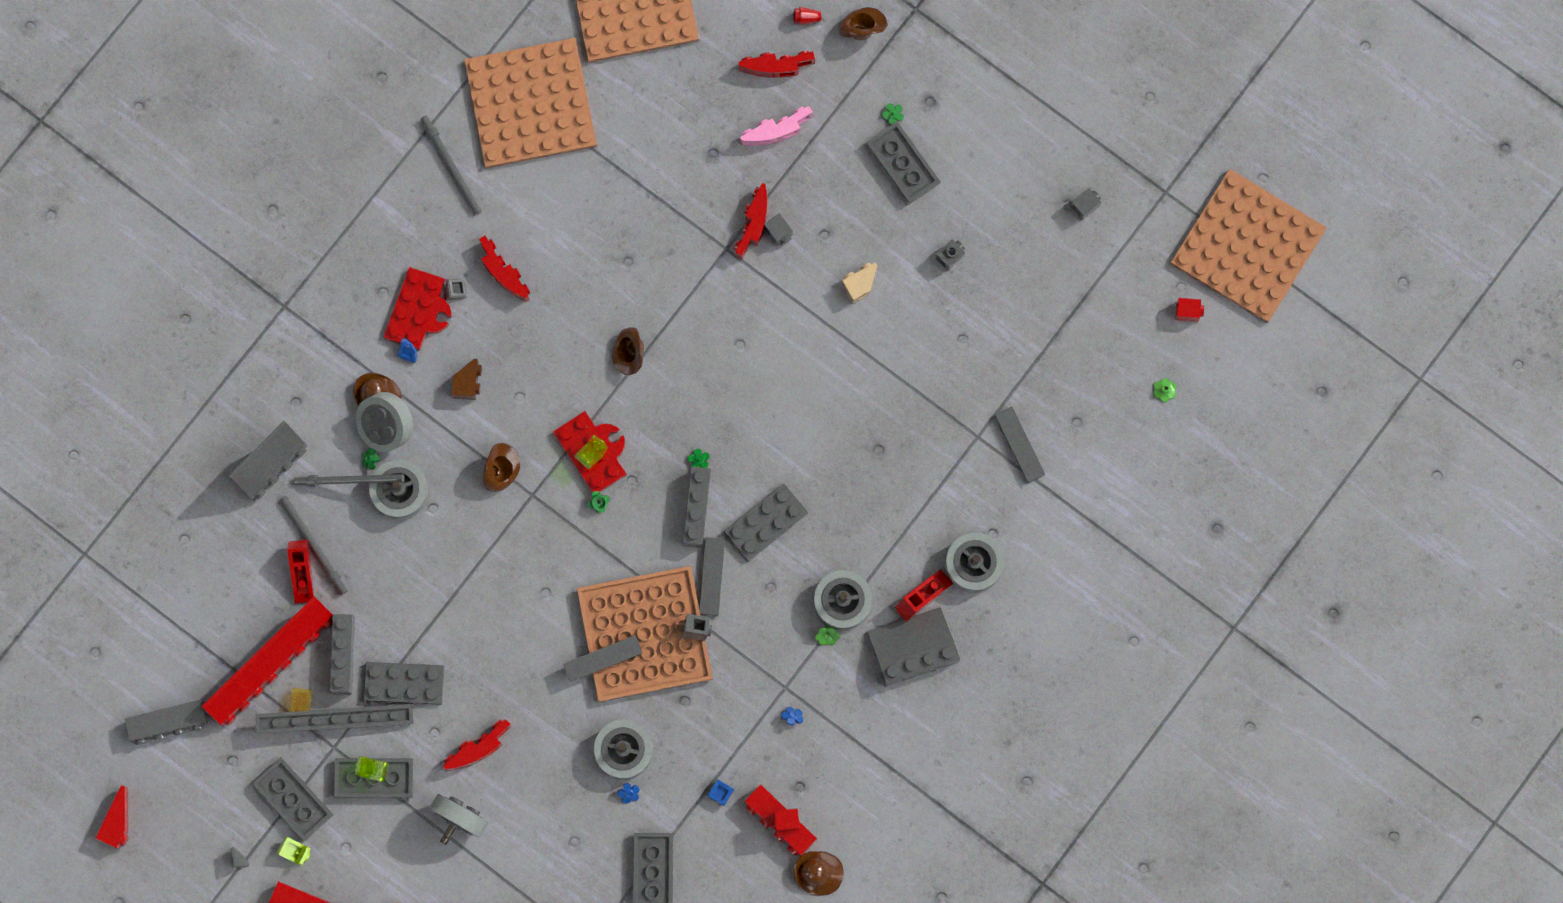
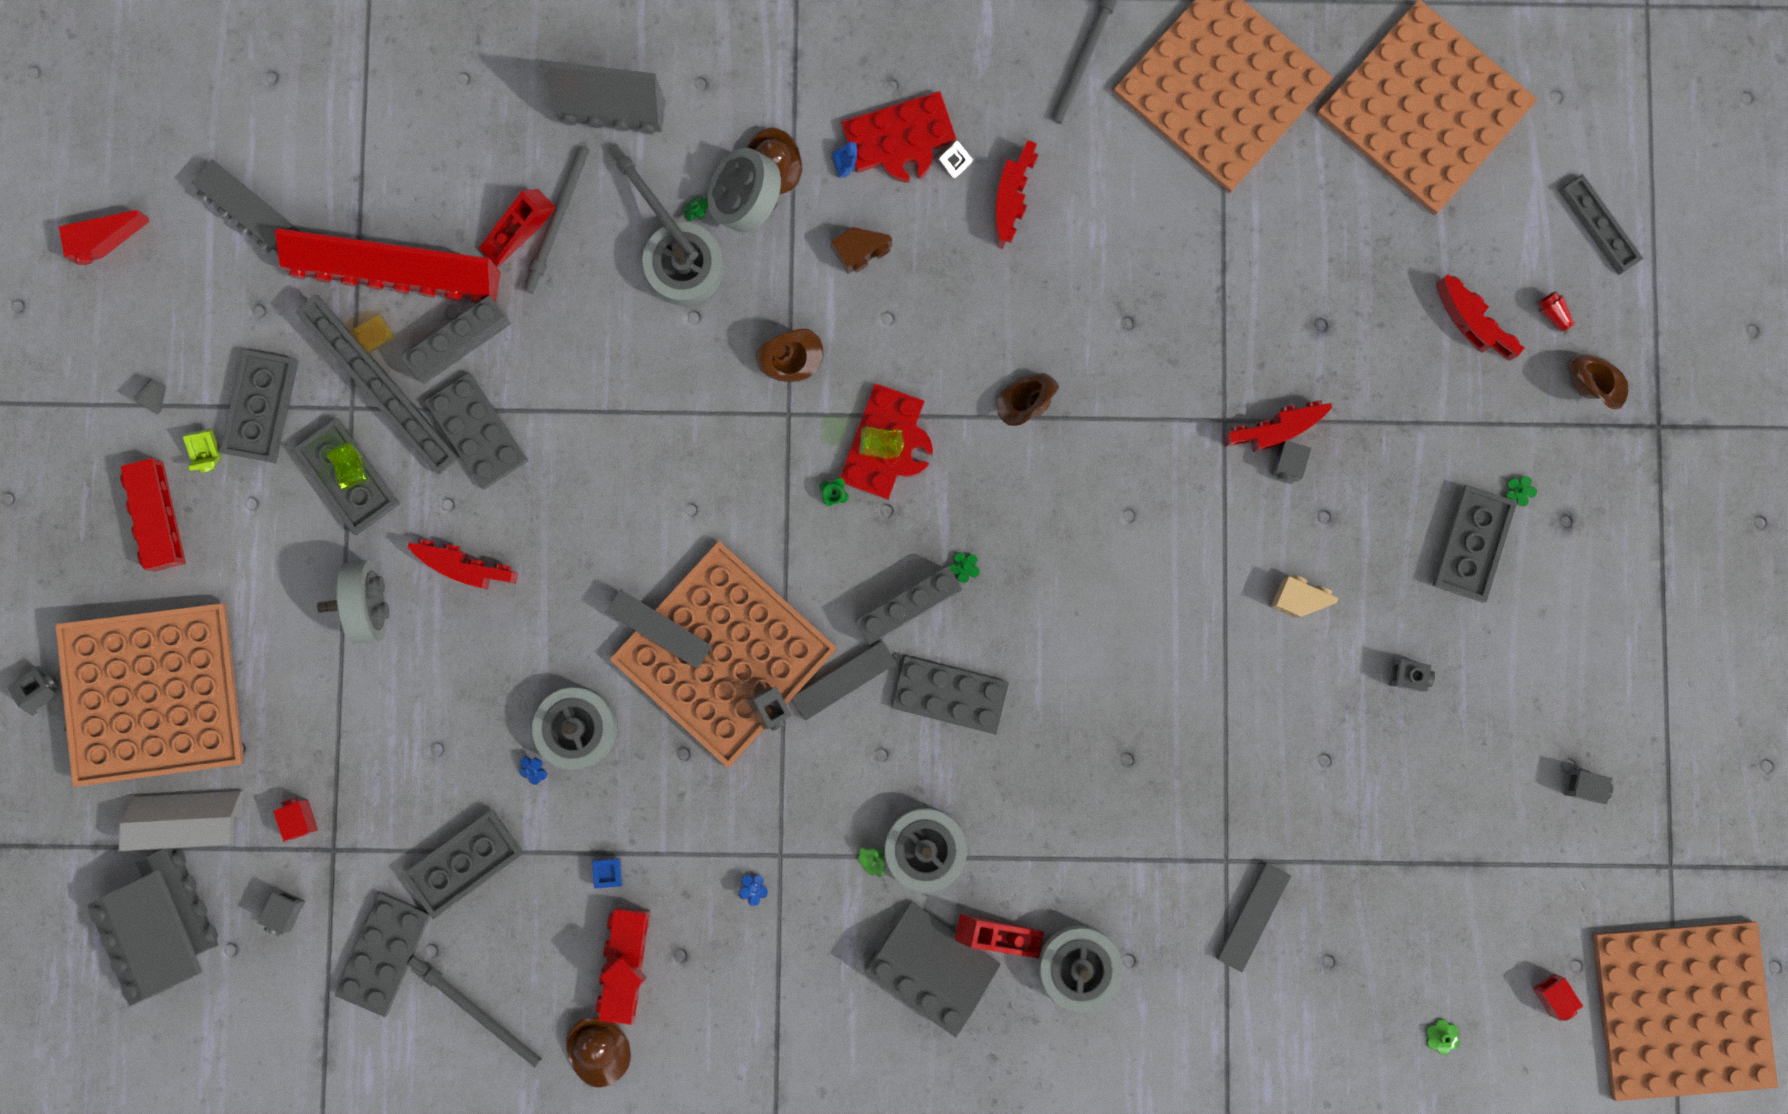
camera: 50 degrees right, 5 degrees up
(770, 133) = (1394, 371): bright pink slope -> none

